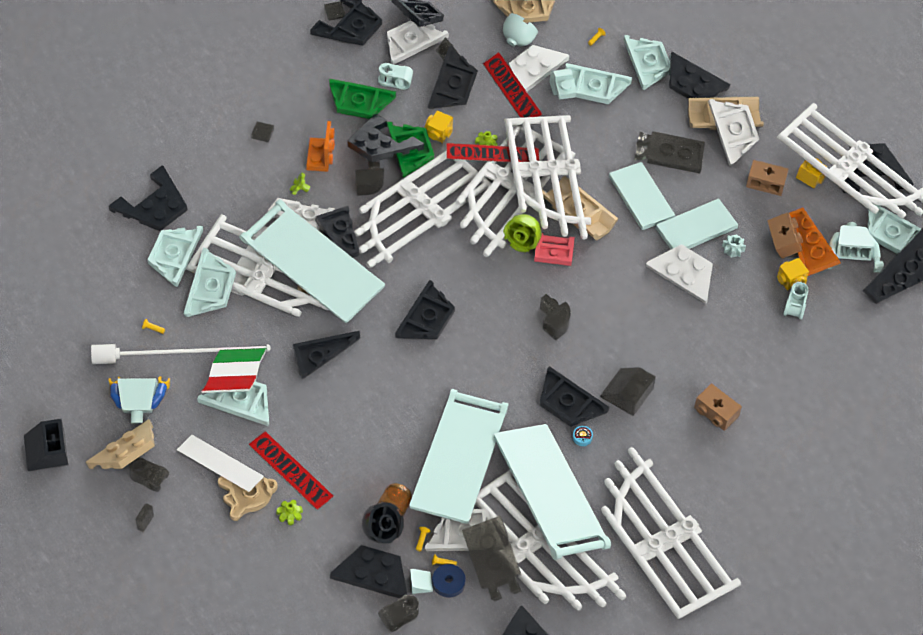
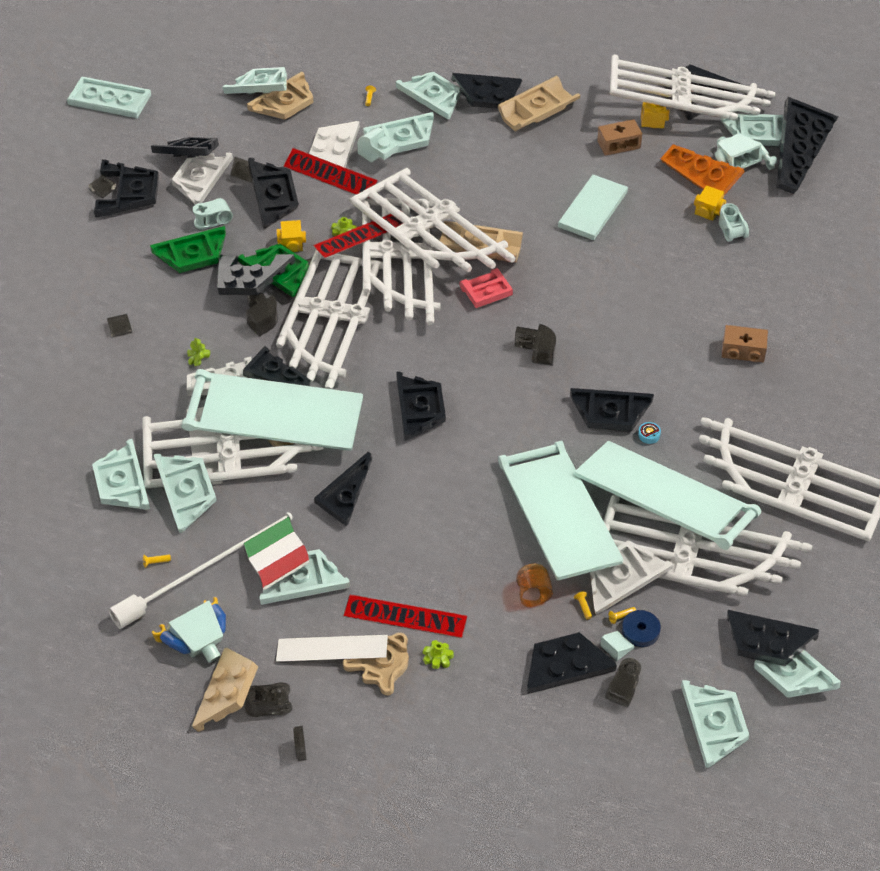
camera: 30 degrees left, 5 degrees down
(46, 445) = (139, 733): black slope -> none
(158, 208) = (69, 447): black wing -> none
(320, 151) = (195, 313): orange bracket -> none
(382, 523) = (541, 610): black cylinder -> none
(493, 556) = (670, 579): clear smoke tile -> none
(517, 31) = (297, 120): light aqua cylinder -> none
(523, 232) = (450, 286): lime cylinder -> none
(629, 389) = (656, 369): clear smoke slope -> none
(641, 195) = (523, 205): light aqua tile -> none
(670, 151) = (517, 157): clear smoke tile -> none
(684, 270) = (617, 247): white wing -> none
(733, 246) = (640, 205): light aqua gear -> none
(734, 128) = (560, 109): white wing -> none
(785, 235) = (677, 174): medium nougat brick -> none

